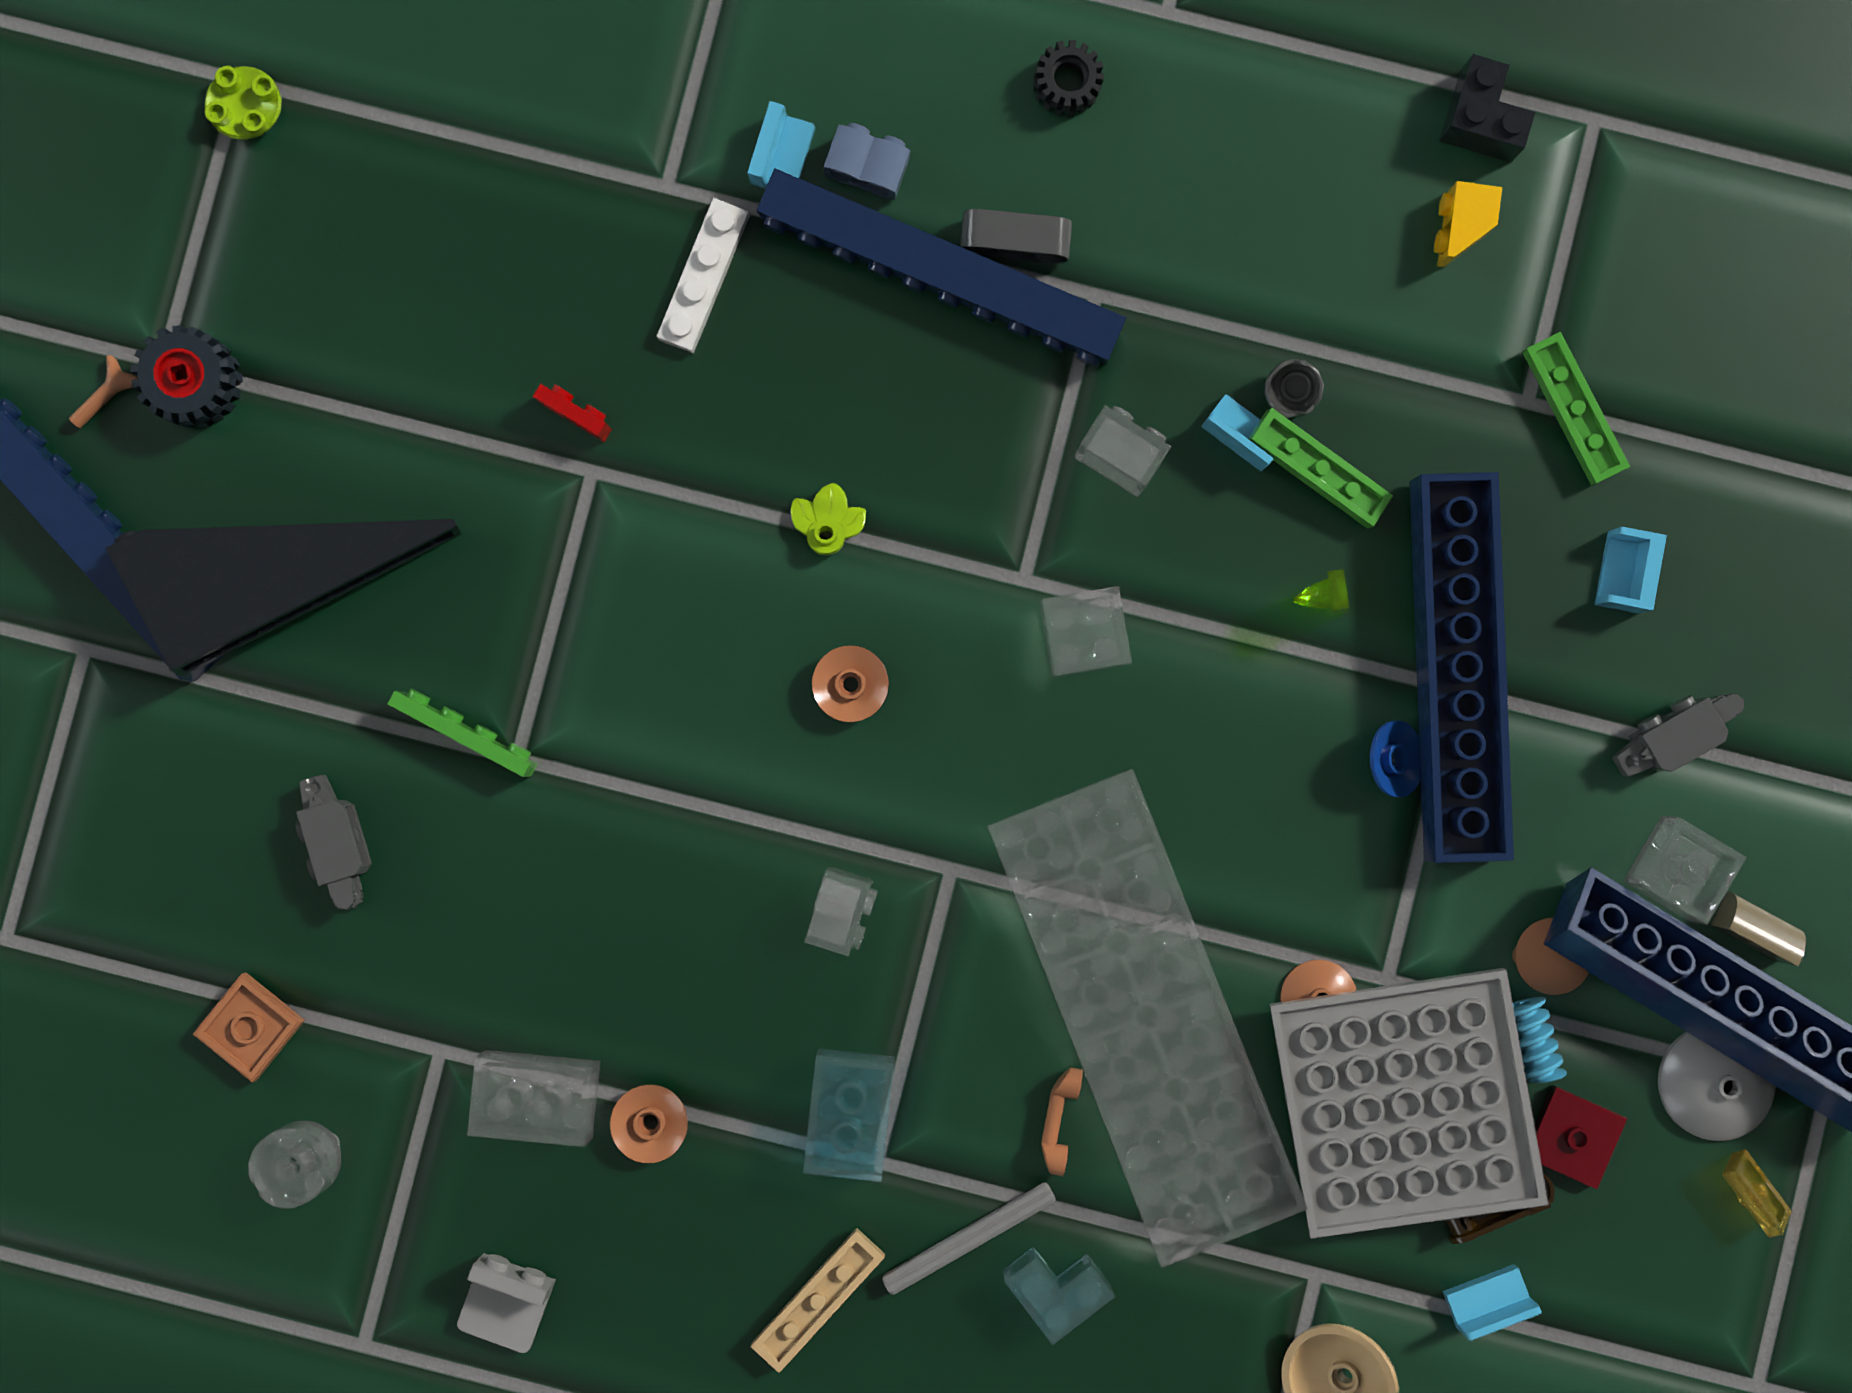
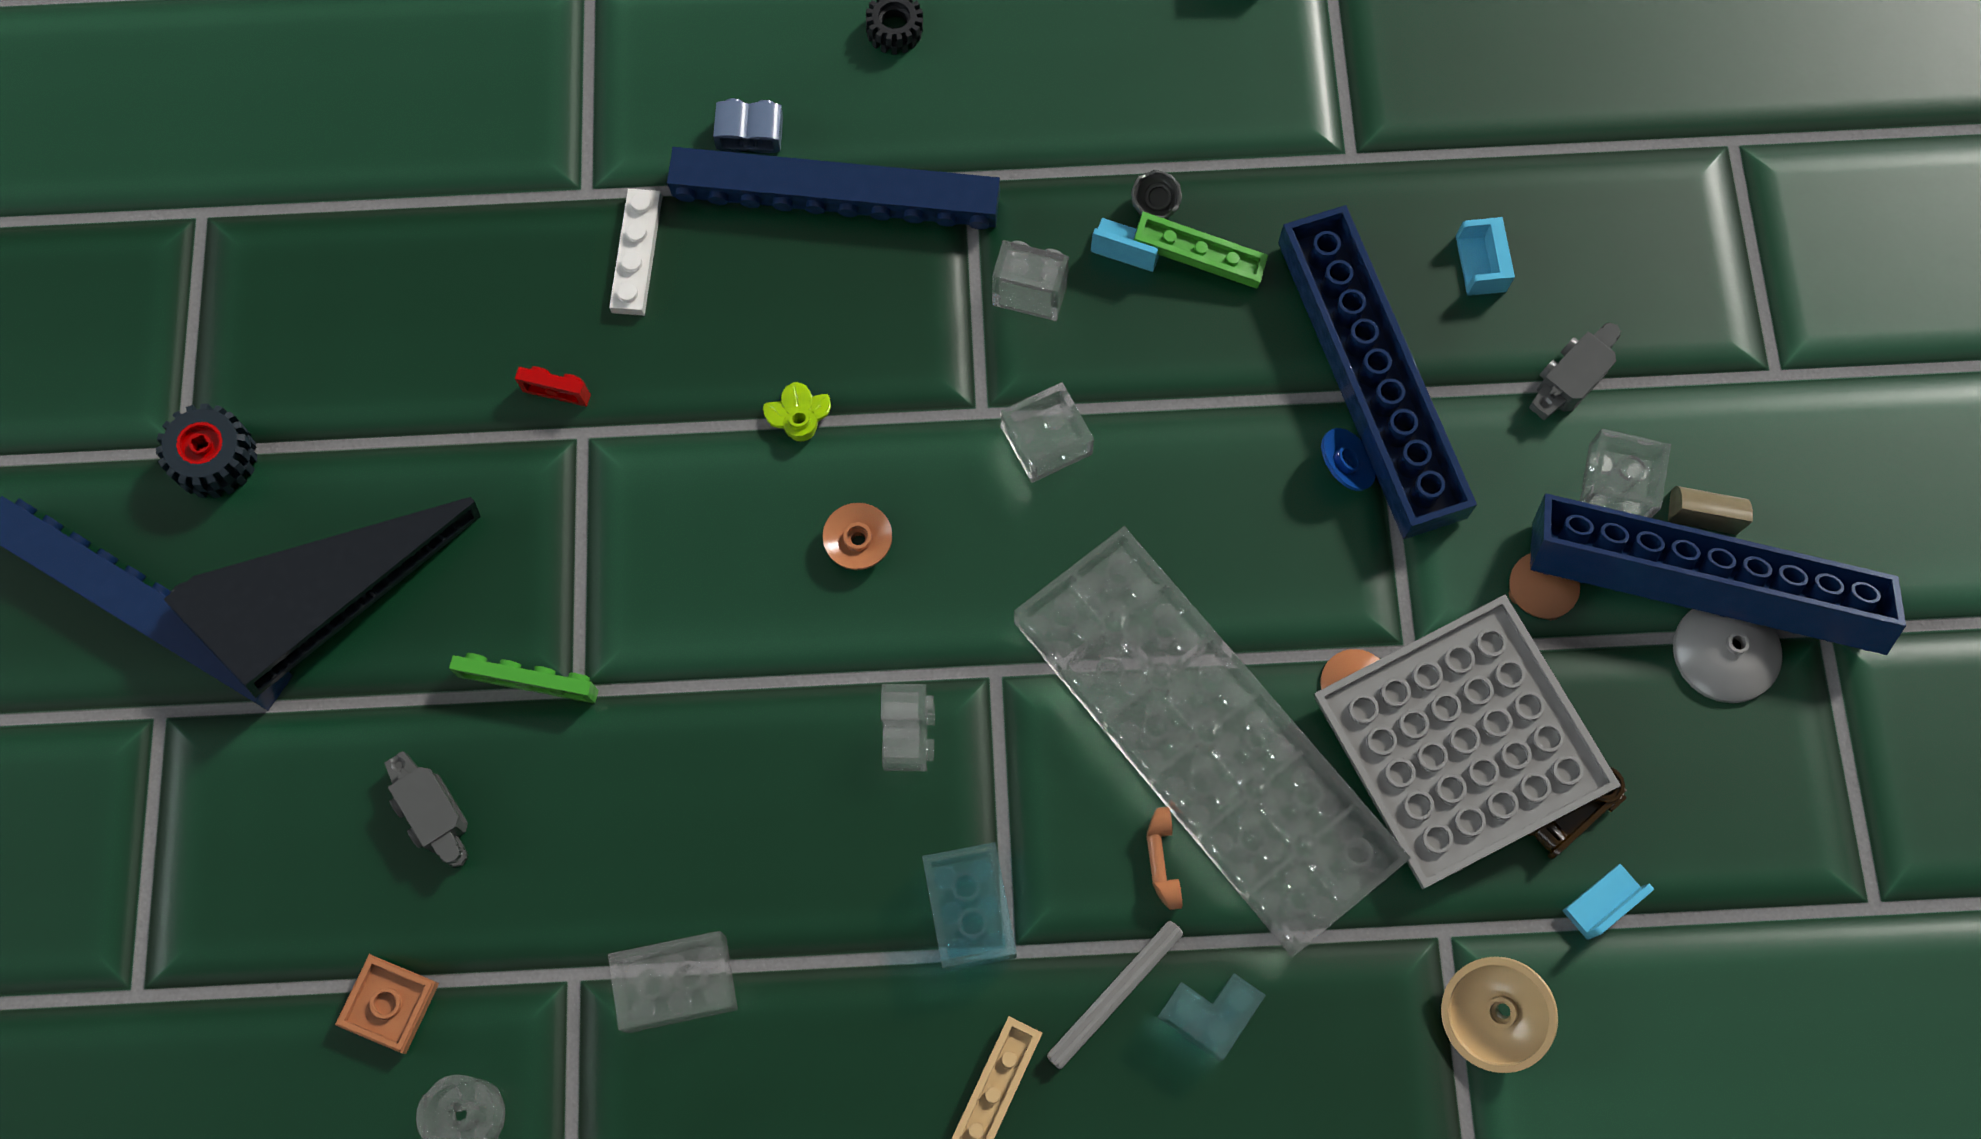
camera: 15 degrees left, 15 degrees down
(115, 382) = (143, 477): nougat piece -> none
(242, 102) = (208, 225): lime dish -> none
(637, 1139) = (770, 966): nougat dish -> none
(780, 145) = (671, 131): medium azure panel -> none
(1016, 235) = (891, 145): dark grey beam -> none
(1327, 593) = (1241, 342): clear neon green tile -> none
(1469, 215) = (1252, 34): yellow slope -> none
(1535, 1046) = (1559, 662): medium azure piece -> none
(1575, 408) = (1392, 149): bright green plate -> none
(1577, 1136) = (1627, 732): dark red plate -> none
(1757, 1193) = (1800, 731): clear yellow plate -> none

